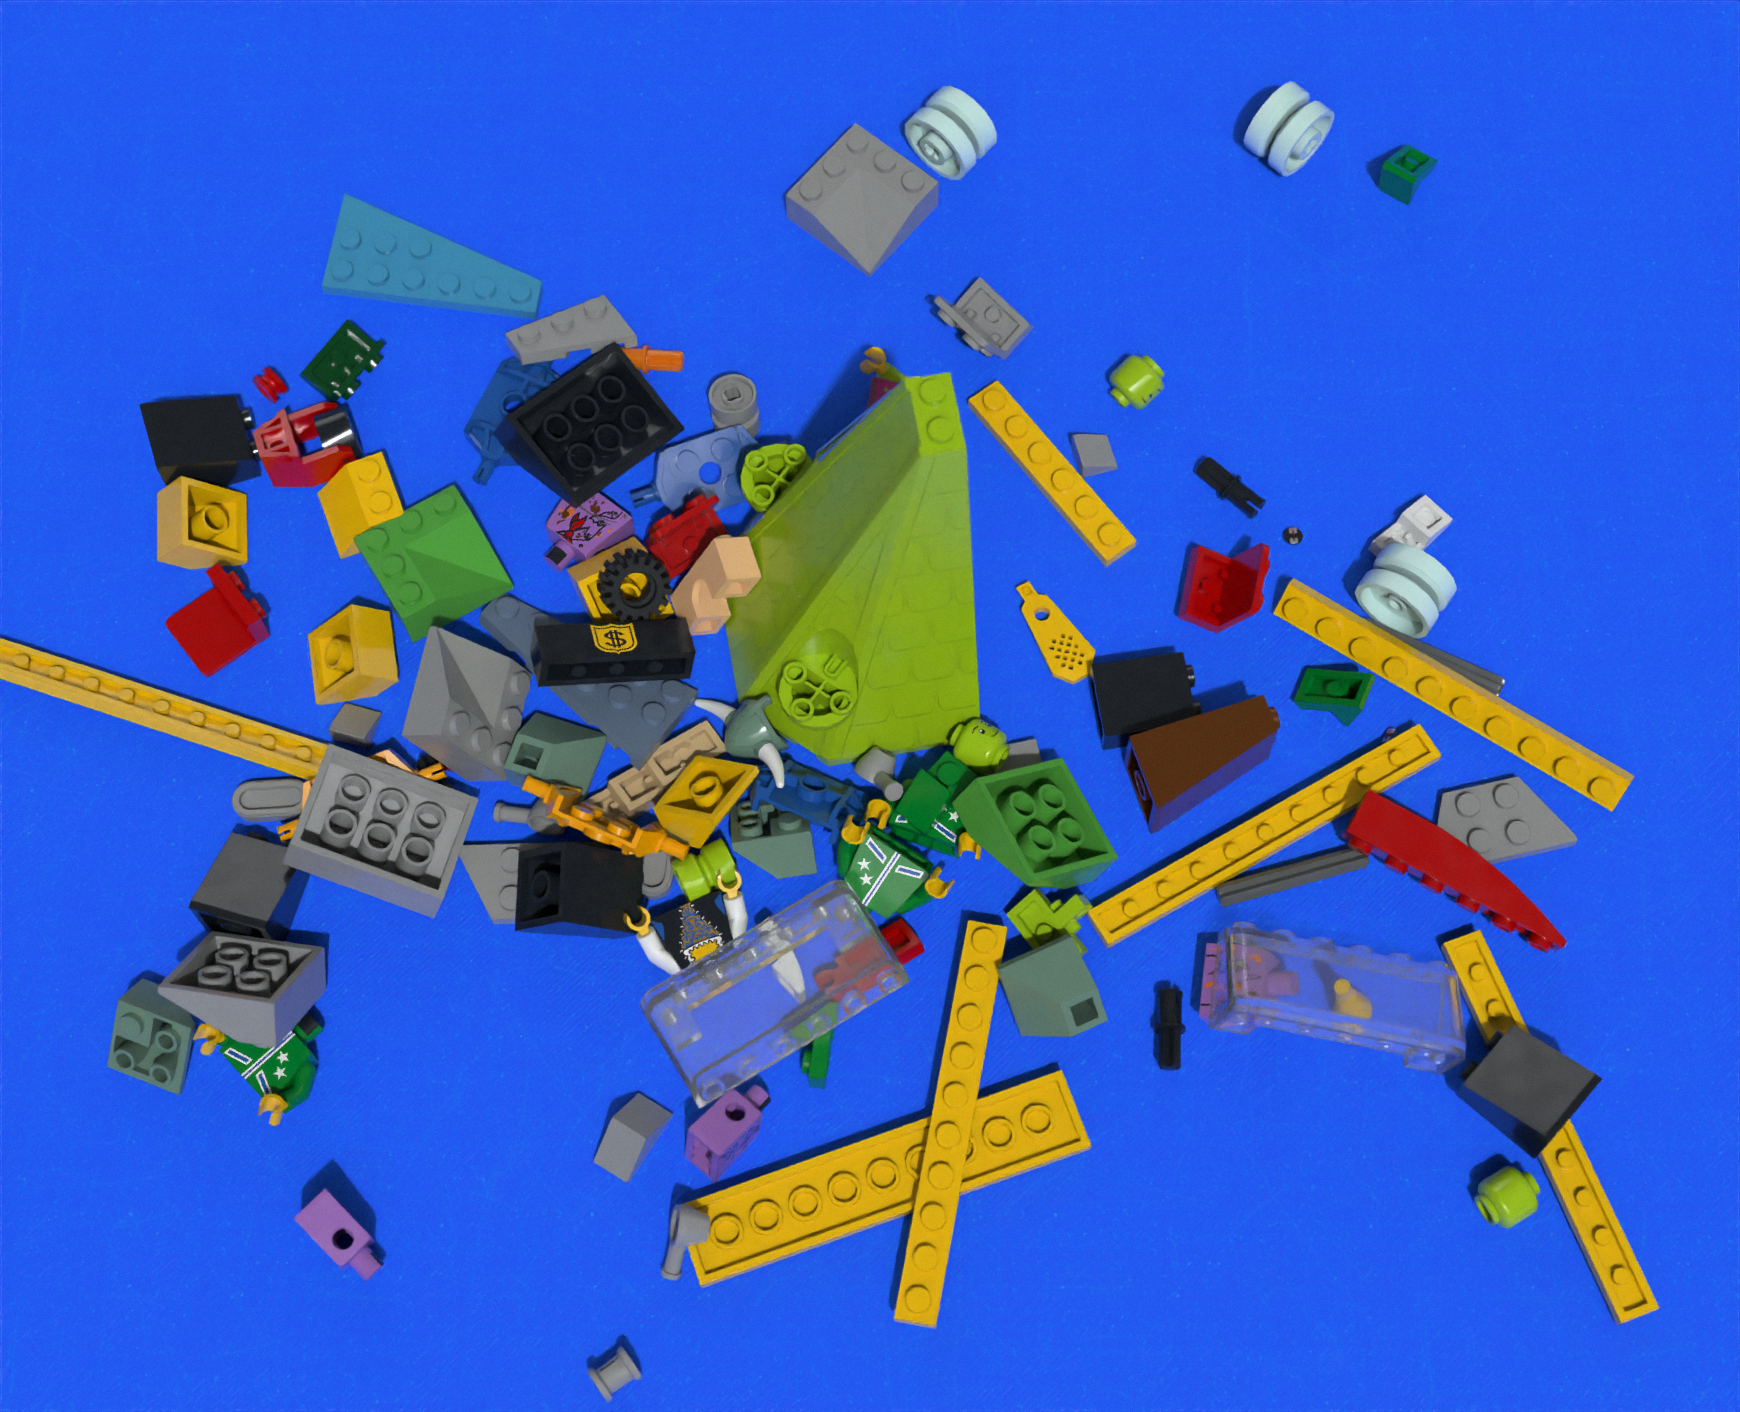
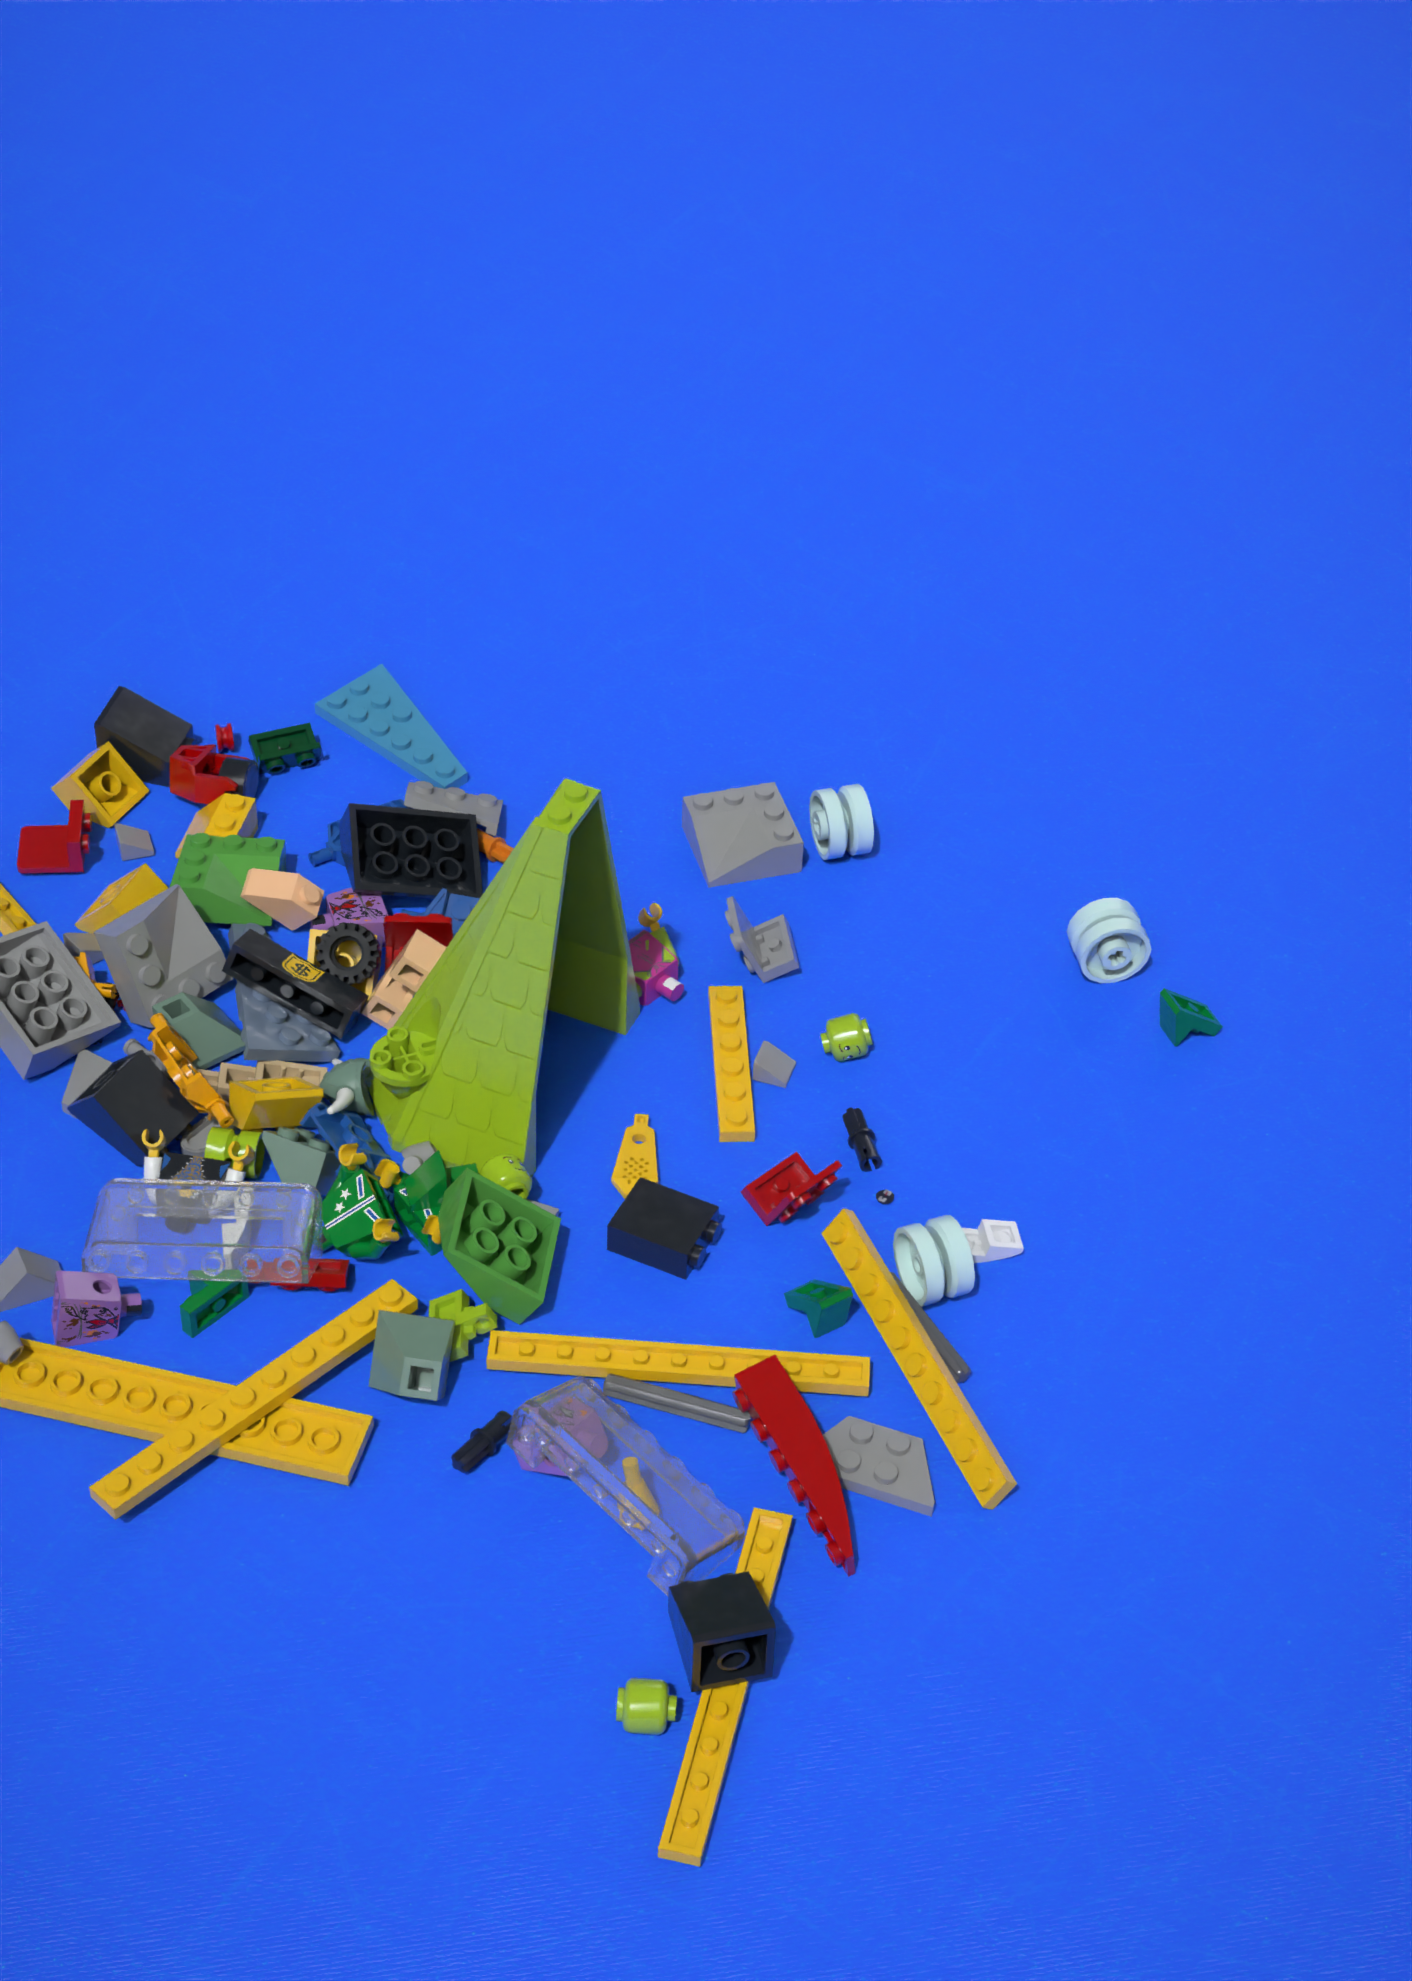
camera: 30 degrees right, 25 degrees down
(289, 570) = (133, 842): none -> light grey slope
(512, 555) = (283, 896): none -> light nougat slope
(1197, 757) = (667, 1277): reddish brown slope -> none

